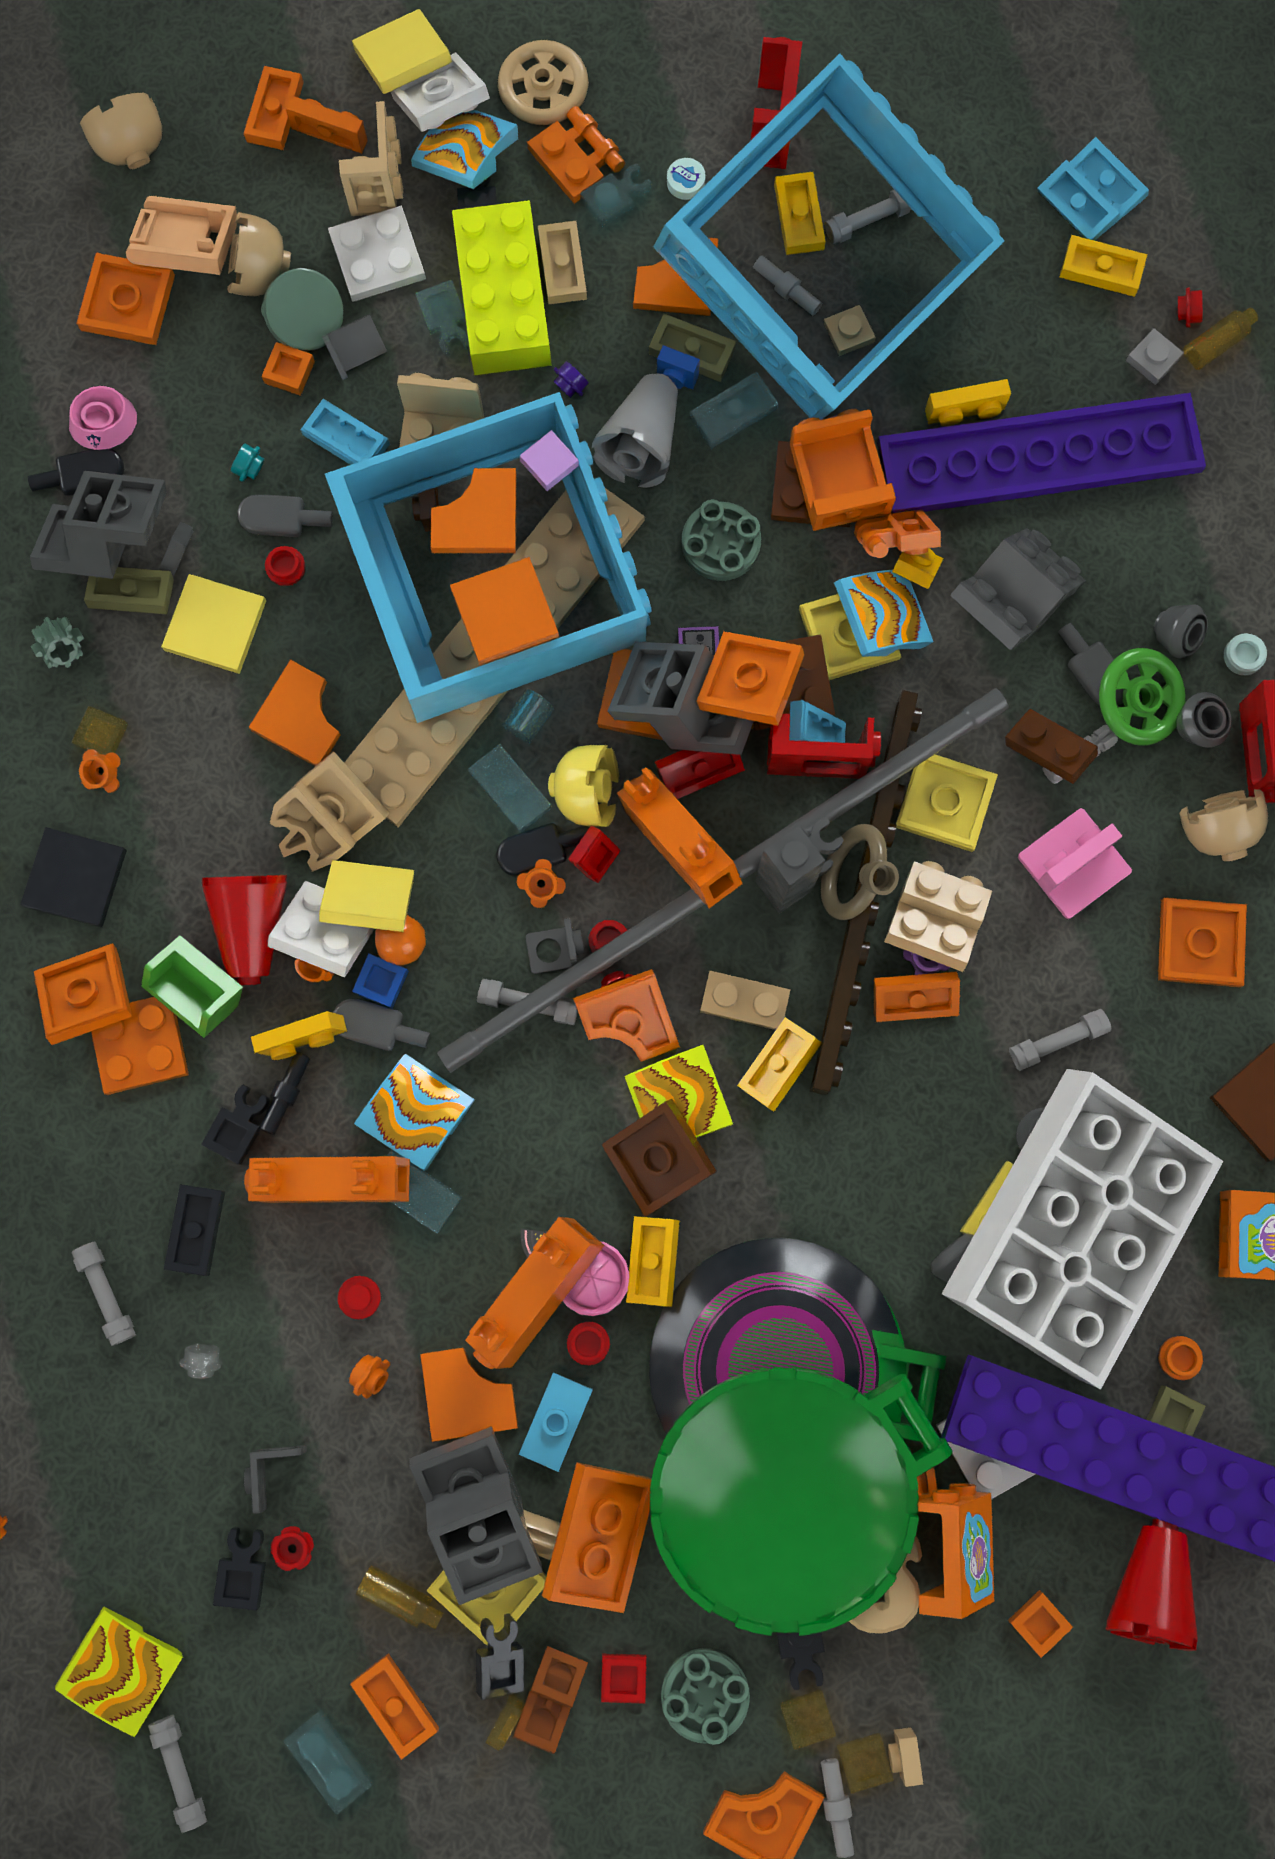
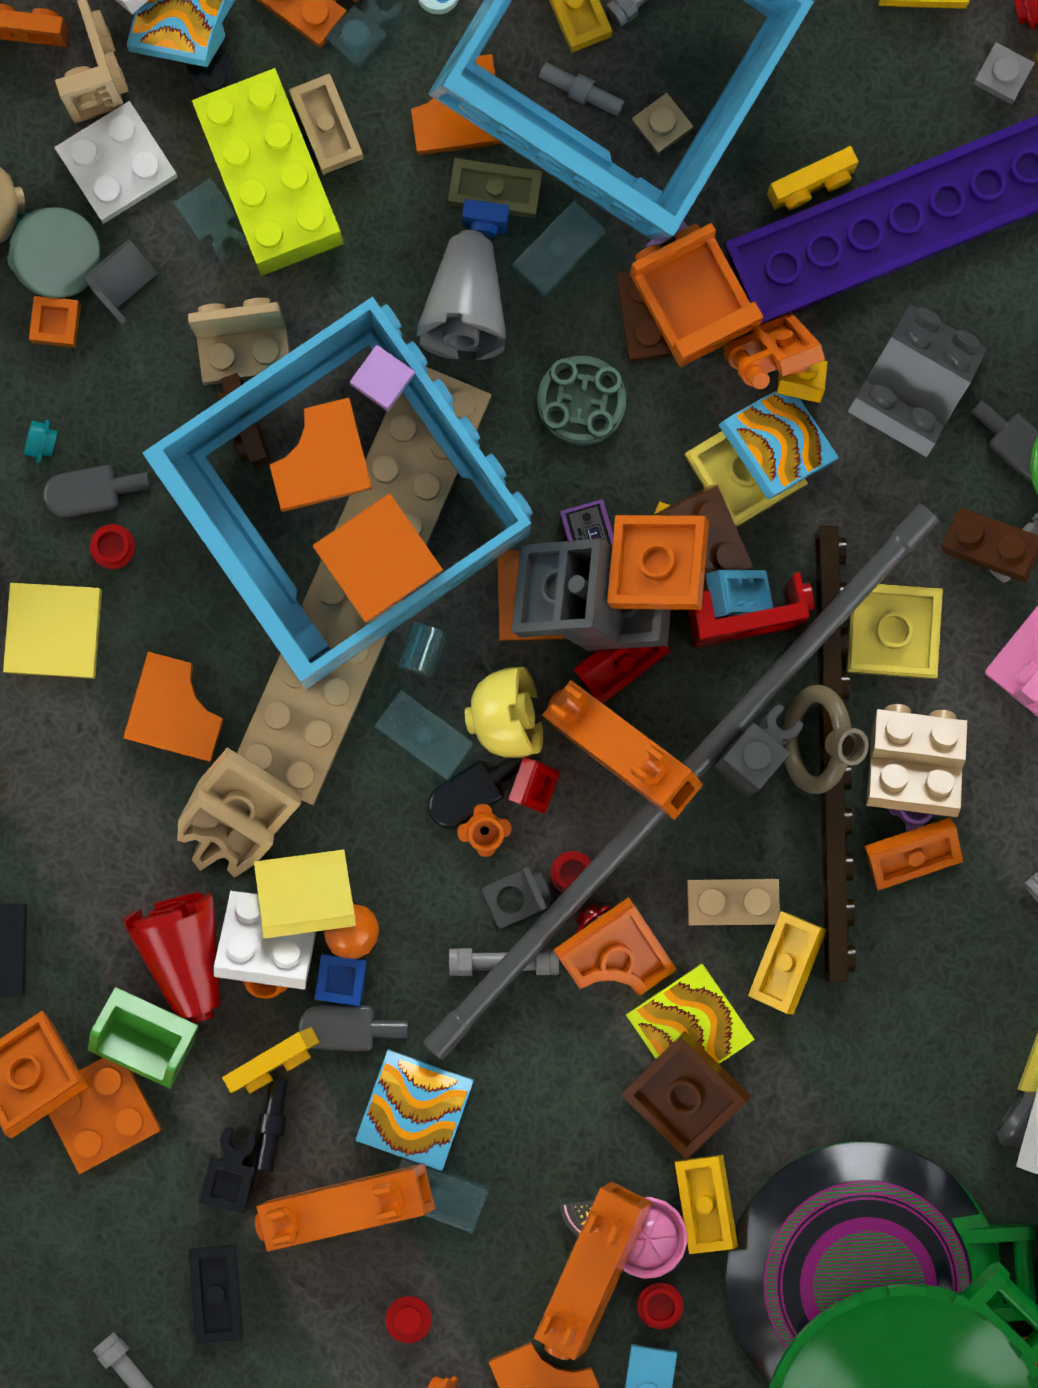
camera: 15 degrees left, 5 degrees up
(343, 434) = (139, 384): medium azure plate -> none
(570, 380) = (369, 258): dark purple plate -> none

